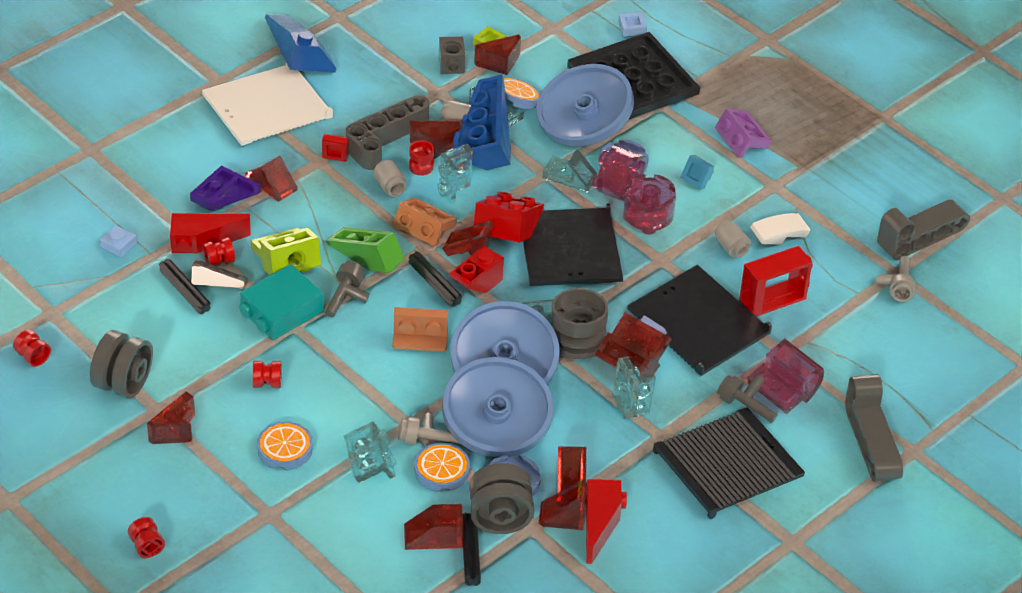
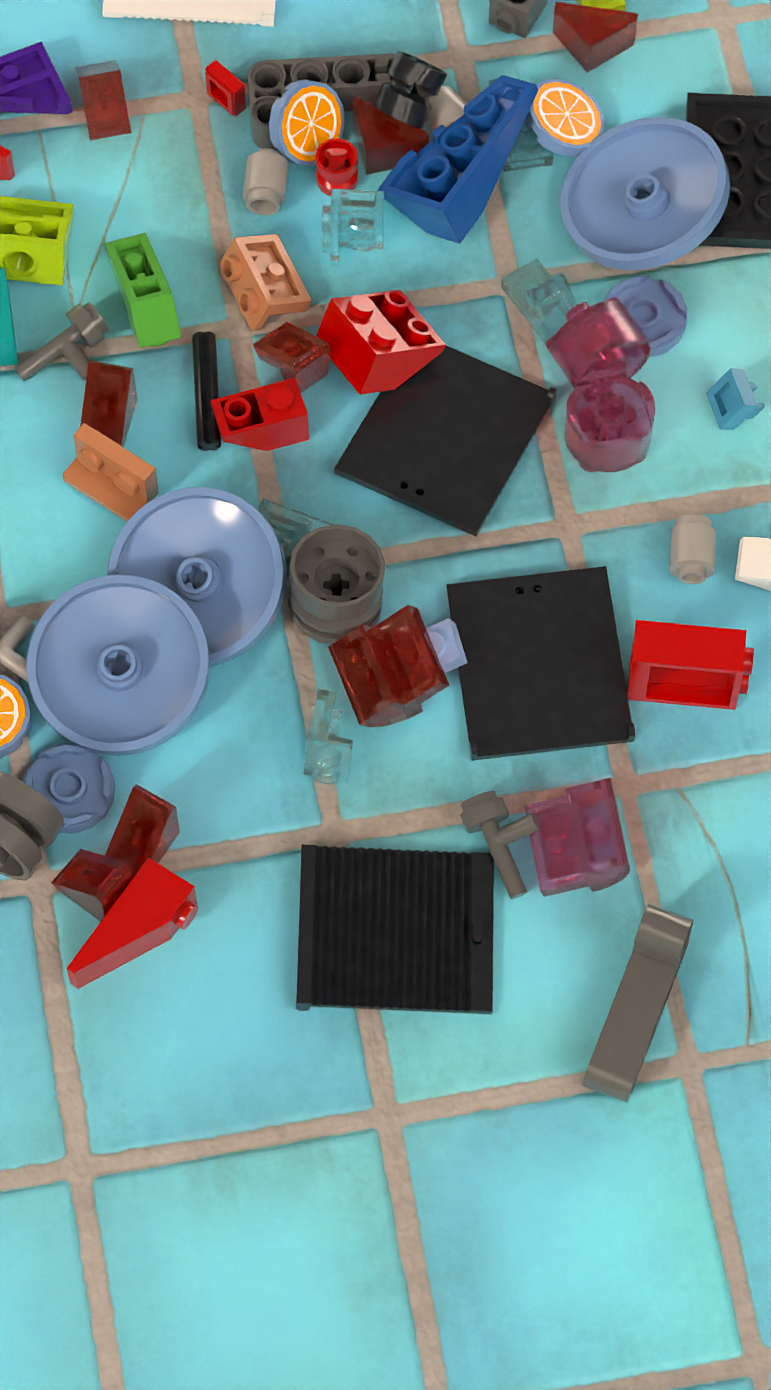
camera: 35 degrees right, 20 degrees up
(389, 294) = (109, 400): none -> clear red slope
(393, 141) = (304, 120): none -> tile
(438, 102) = (405, 104): none -> black wheel

